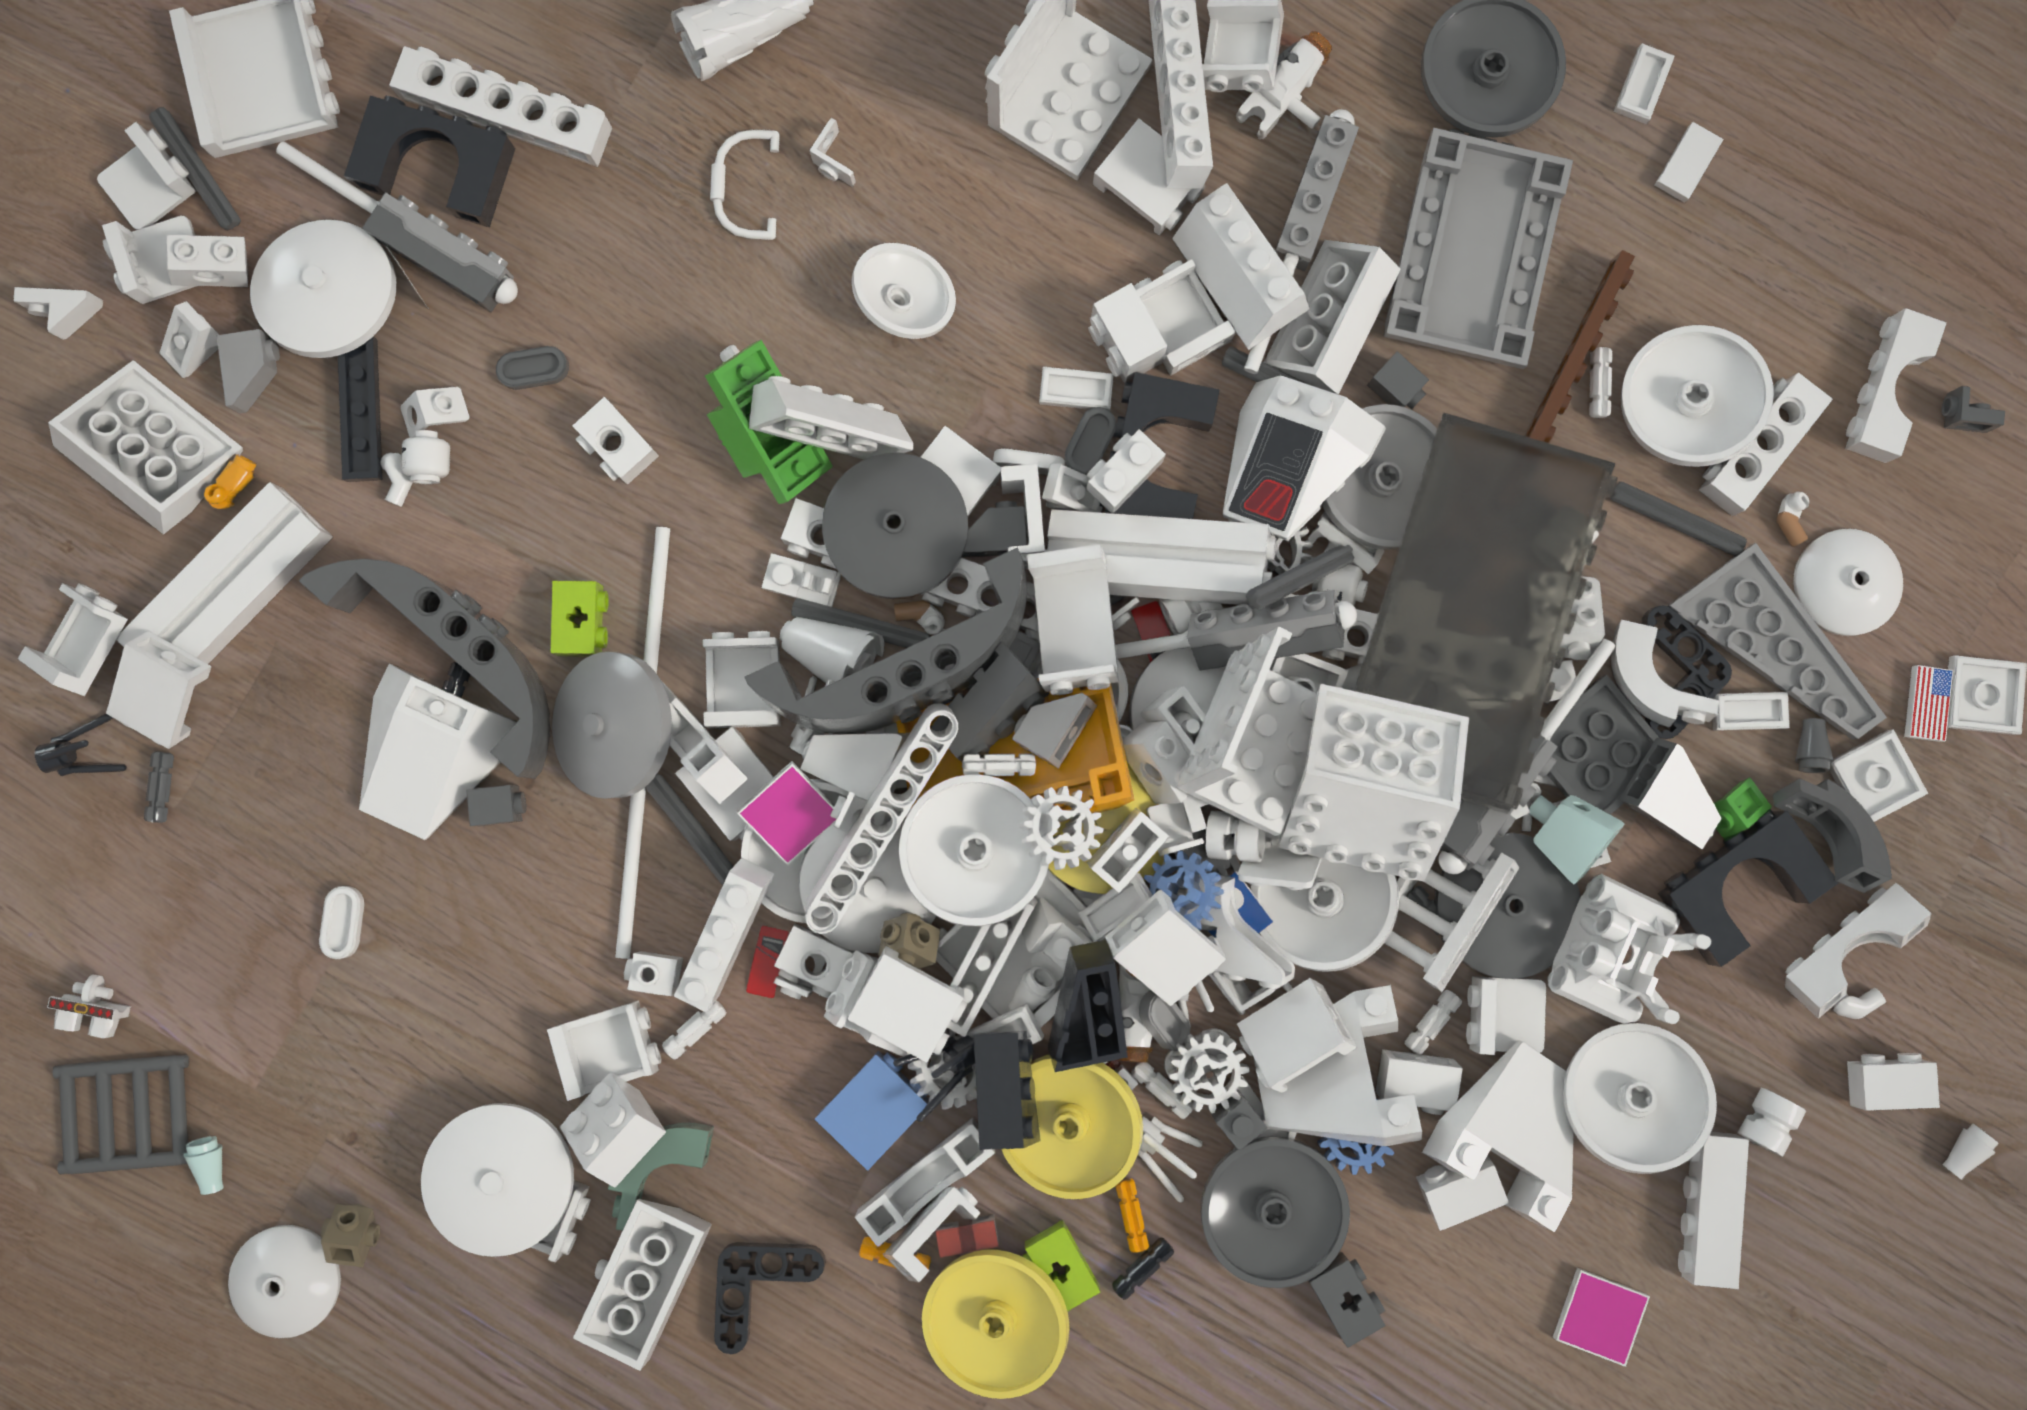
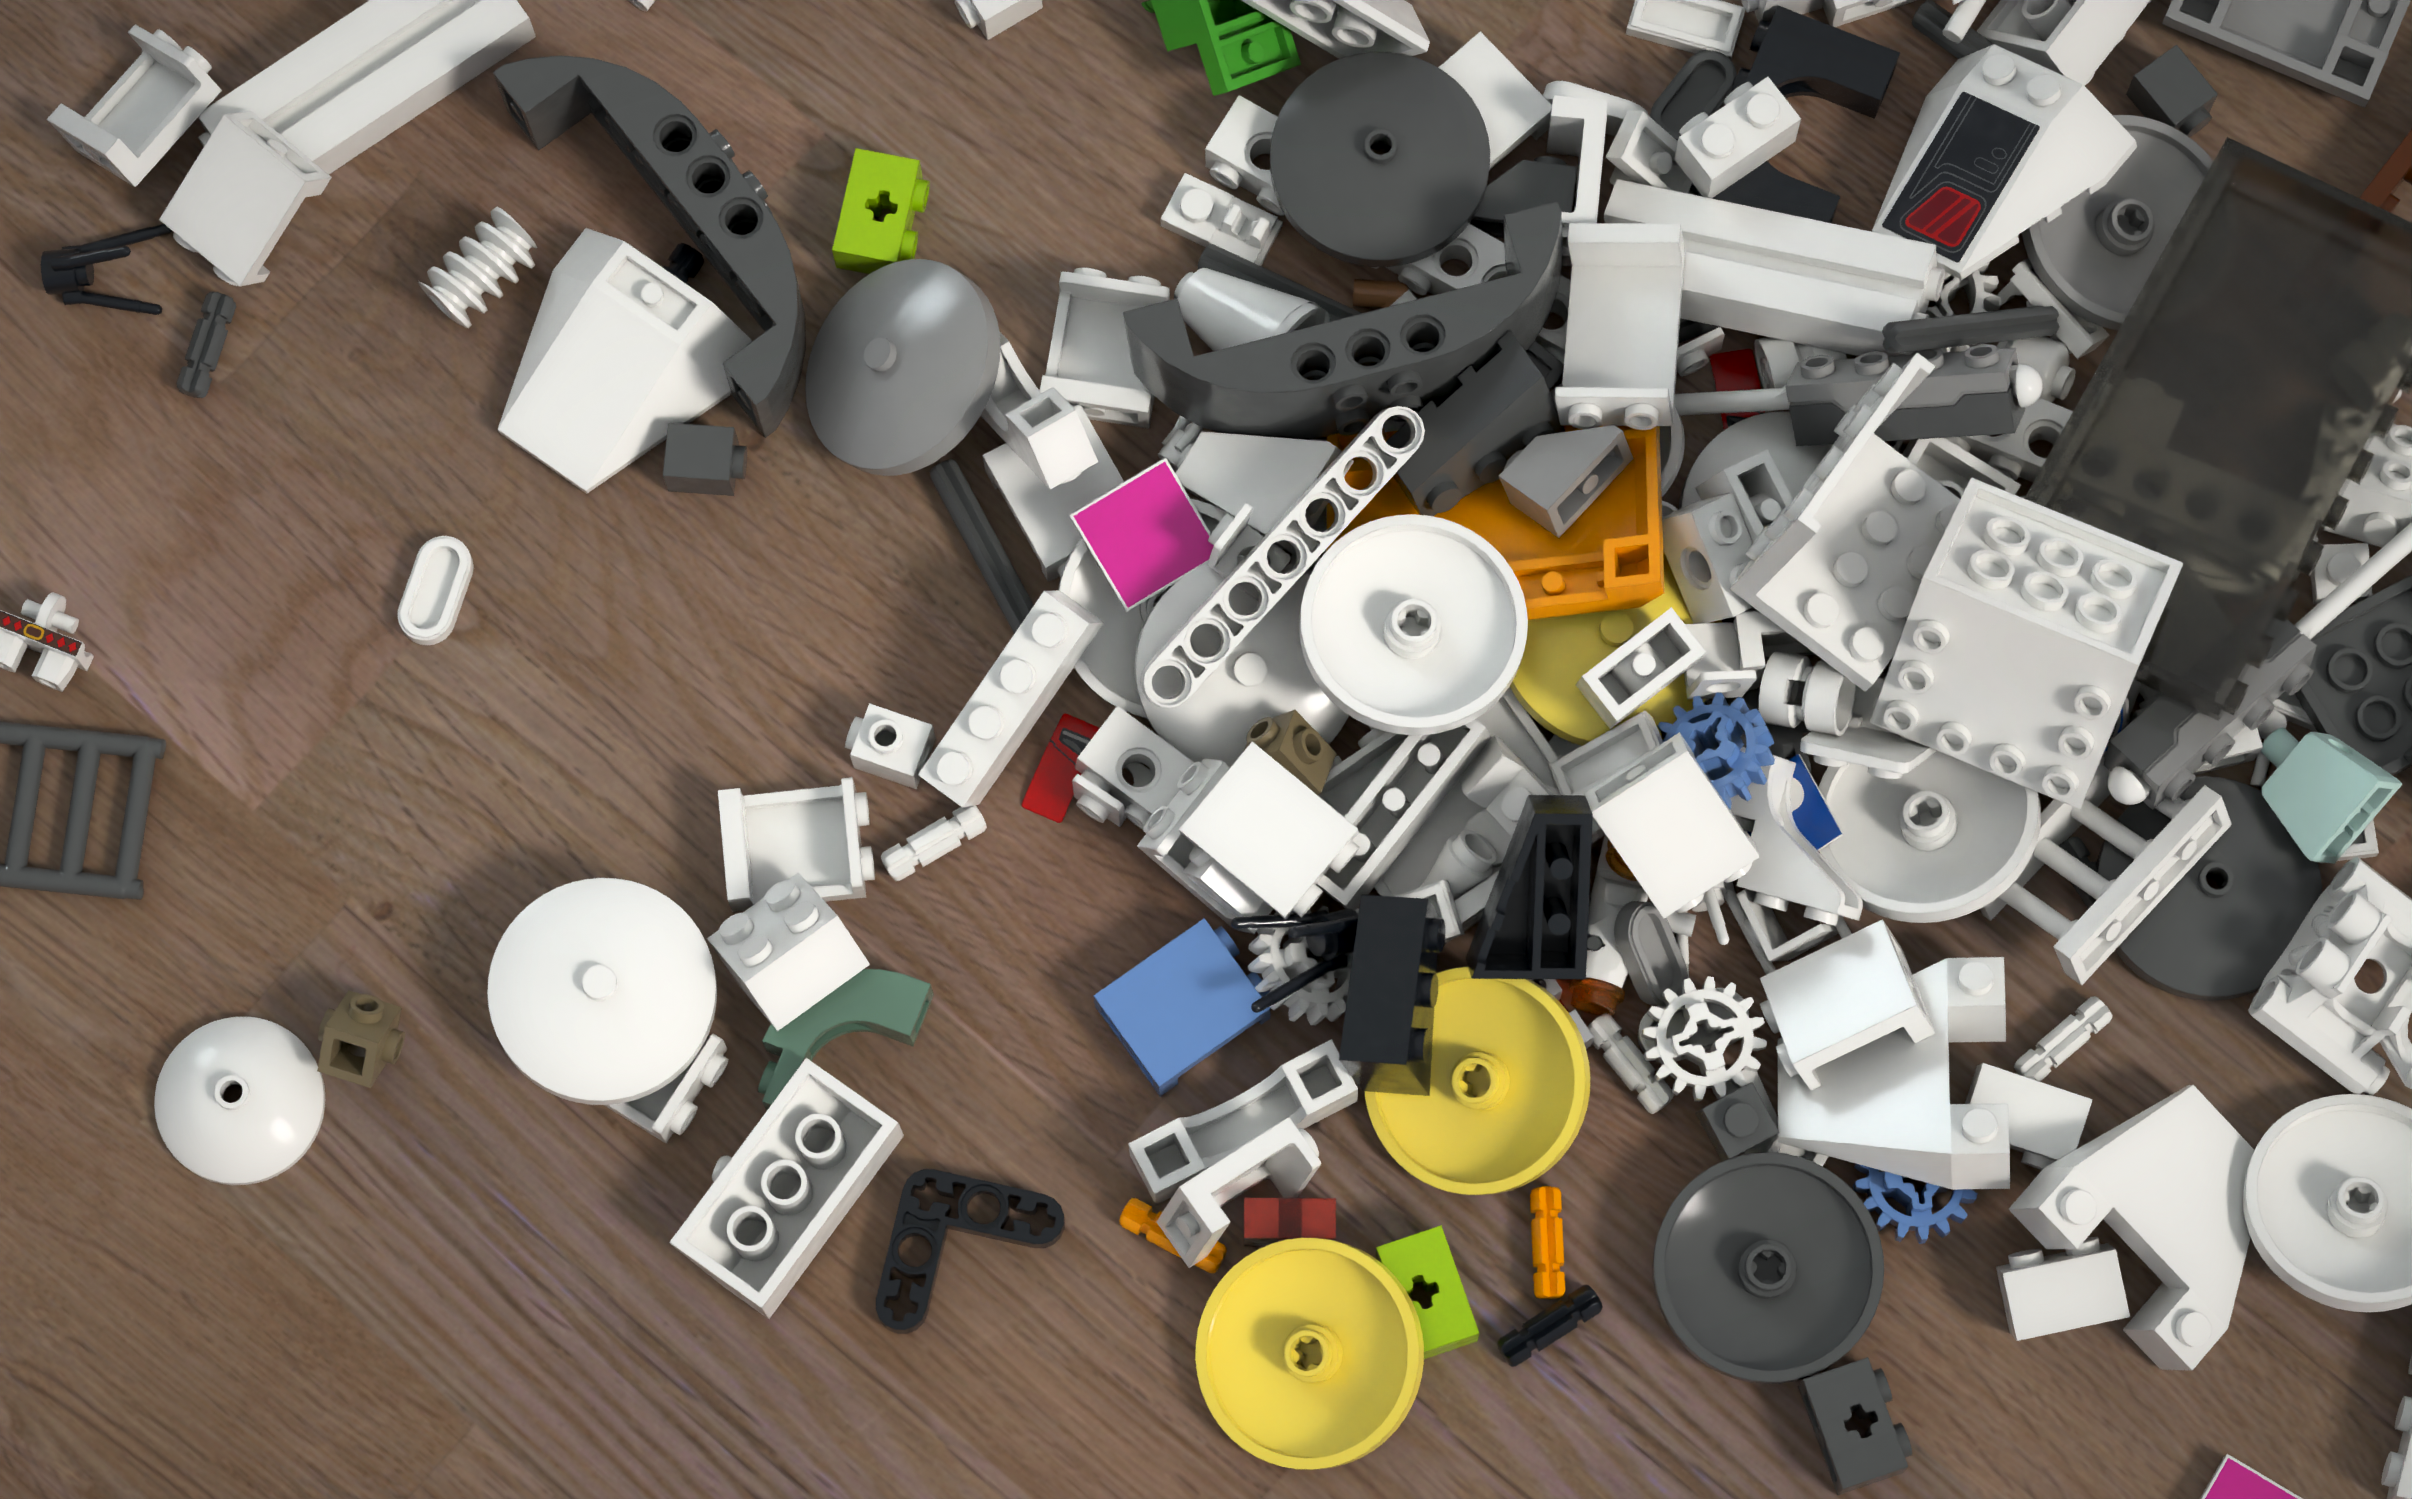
camera: 15 degrees right, 10 degrees down
(205, 1163) = (163, 899): light aqua cone -> none
(325, 707) = (479, 267): none -> white piece
(637, 800) = (917, 481): white piece -> none
(999, 764) = (1474, 514): white axle -> none
(1050, 817) = (1553, 632): white gear -> none
(1152, 1142) = (1597, 1132): white plant -> none
(1505, 1013) = (2176, 1044): white bracket -> none

